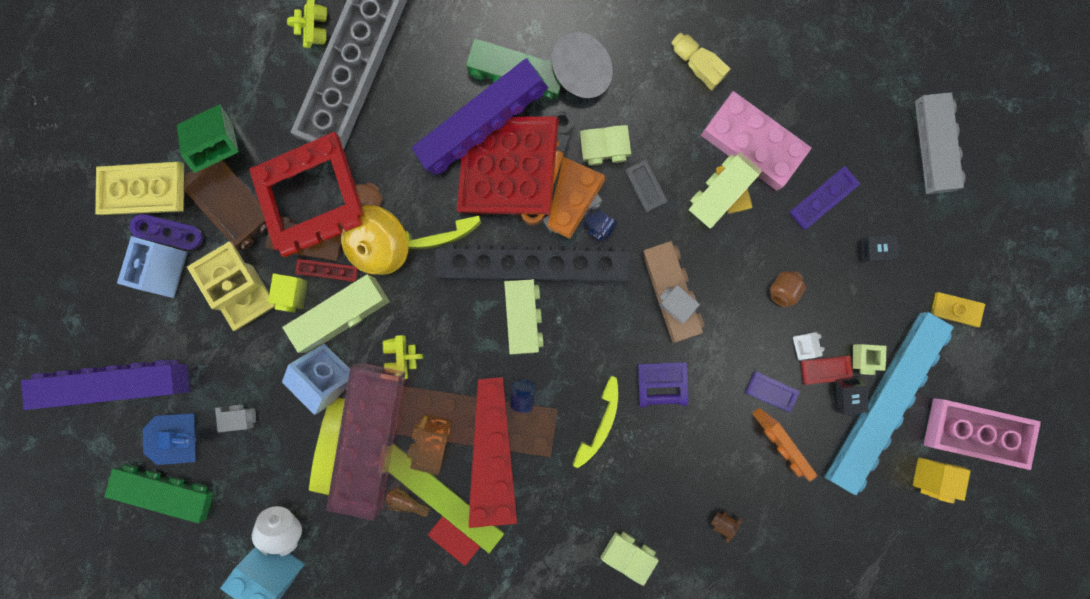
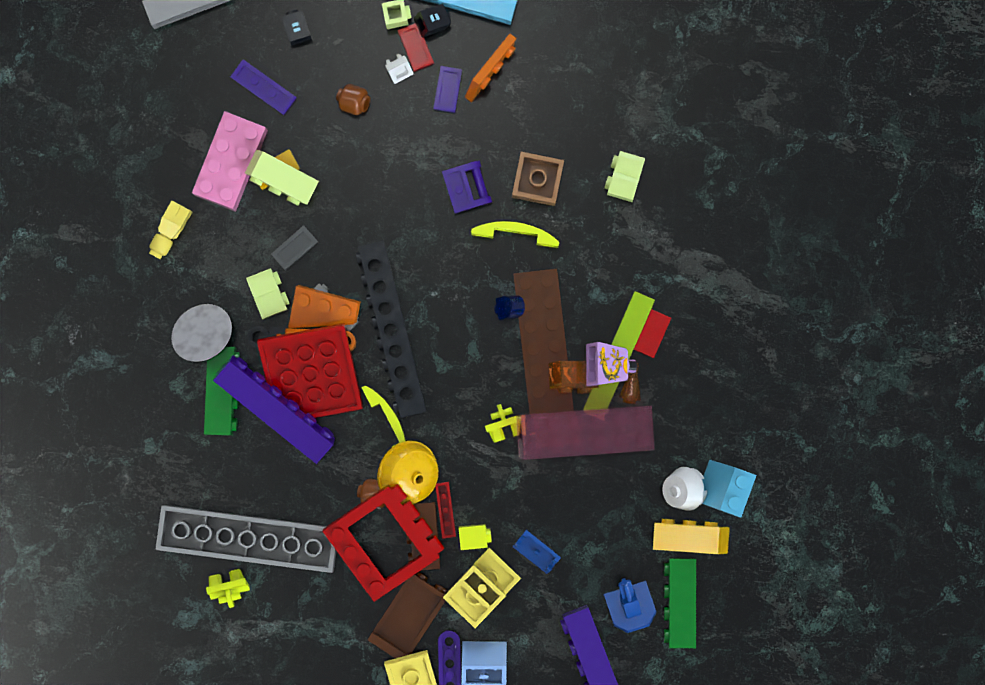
camera: 105 degrees left, 0 degrees up
(207, 138) = (356, 646): green brick -> none
(223, 522) = (691, 537): none -> yellow wedge
(235, 419) = (597, 554): light grey brick -> none
(257, 355) = (536, 551): none -> blue hinge
(317, 378) = (542, 490): light blue slope -> none
(326, 448) = (600, 464): neon yellow slope -> none
(336, 314) = (481, 488): yellowish green brick -> none
(430, 484) = (607, 364): none -> lavender torso
(492, 476) = (587, 314): red wing -> none
(523, 316) = (440, 325): yellowish green brick -> none
(600, 225) = (340, 279): clear blue plate -> none
(651, 463) = (537, 178): none -> medium nougat brick
(664, 273) = (382, 200): medium nougat brick -> none
(678, 303) = (393, 192): light grey brick -> none
(726, 525) = (574, 100): reddish brown brick -> none

